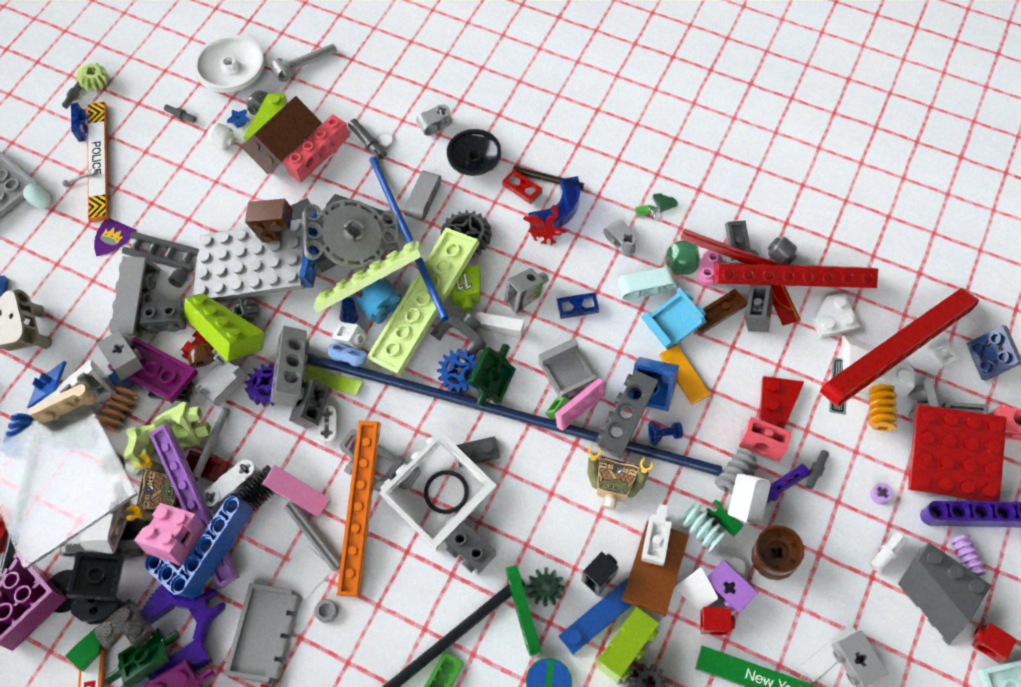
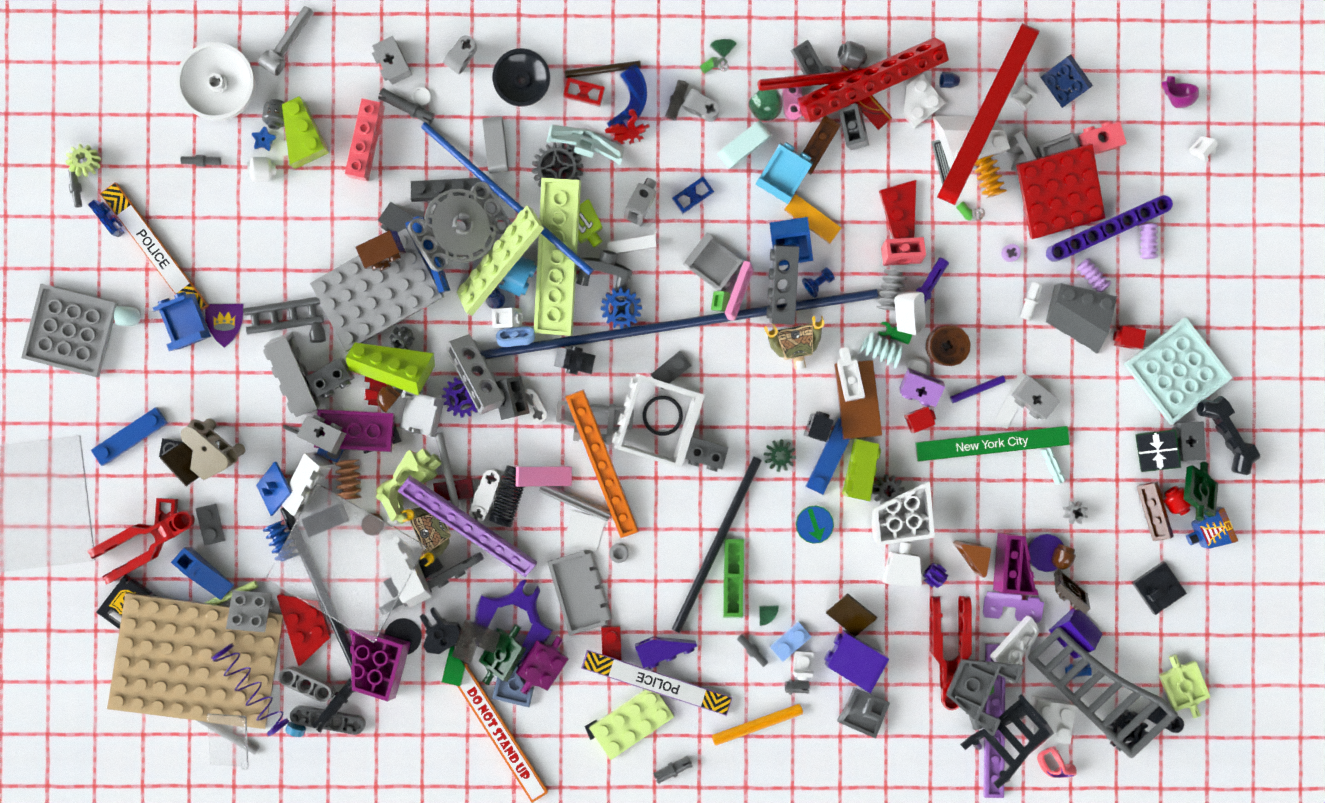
camera: 30 degrees left, 25 degrees up
(62, 404) = (309, 504): tan plate -> none
(78, 217) = (183, 320): none -> blue panel
(92, 172) = (161, 267): light grey hinge -> none
(95, 576) = (431, 618): black hinge -> none
(170, 534) = (469, 560): bright pink piece -> none
(206, 554) = (502, 562): blue beam -> none
(281, 135) = (328, 149): reddish brown slope -> none
(333, 380) = (515, 364): lime sticker -> none
(375, 103) = (399, 68): none -> light grey brick
(389, 398) = (574, 360): none -> black hinge
(492, 375) = (652, 299): dark green plate -> none
(502, 223) = (585, 142): none -> light aqua plate
(523, 610) = (771, 482): green beam -> none
(601, 223) = (676, 100): none -> clear smoke pin
(697, 589) = (896, 402): white sticker -> none
(794, 620) = (977, 389): none -> dark purple bar
(817, 469) = (953, 255): dark grey bar -> none
(849, 437) = (970, 214): none -> arm
(870, 309) = (948, 80): none -> dark blue hose

